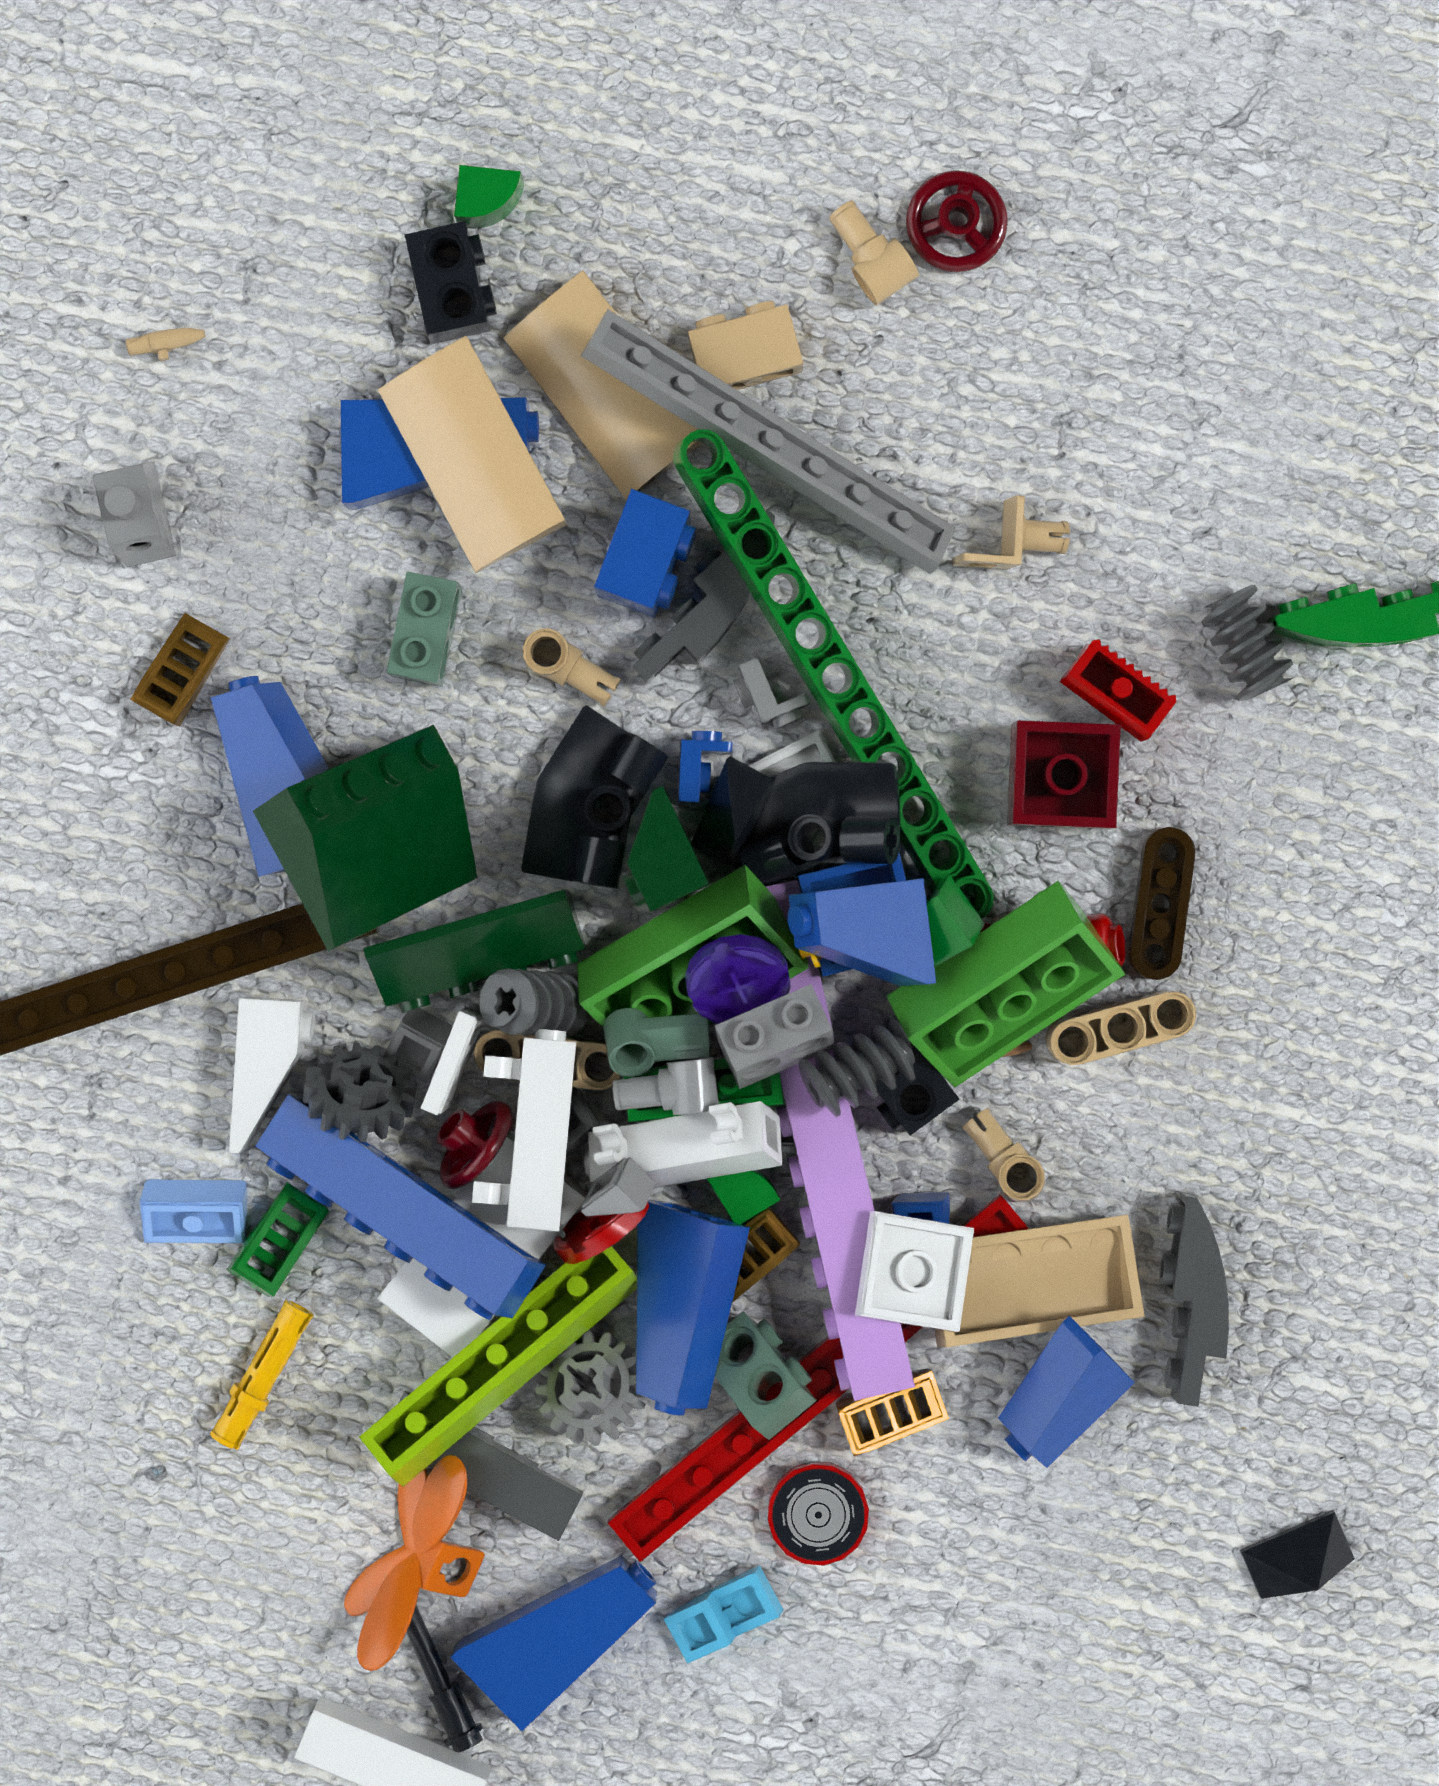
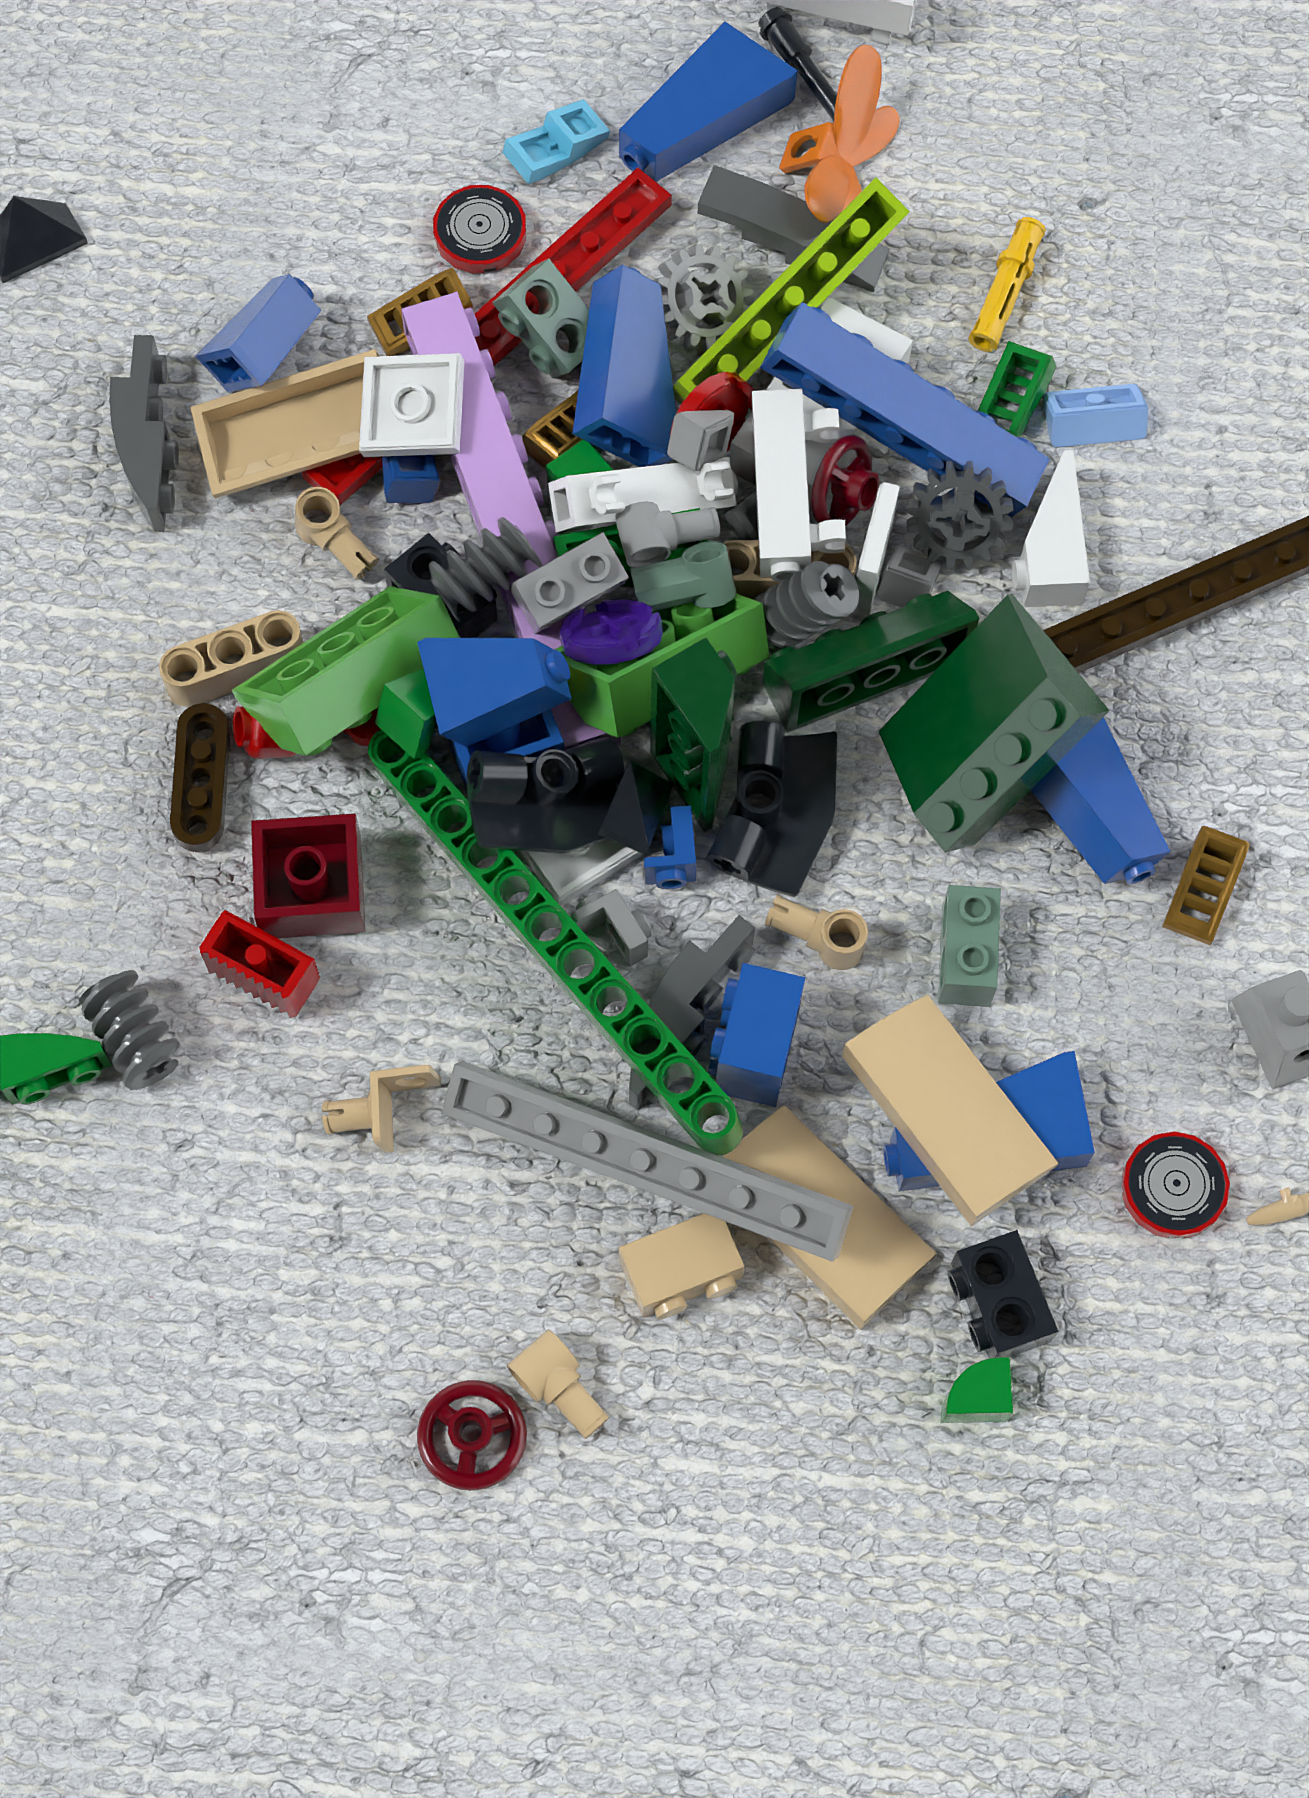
camera: 170 degrees right, 20 degrees down
(266, 375) = (1175, 1185): none -> tile

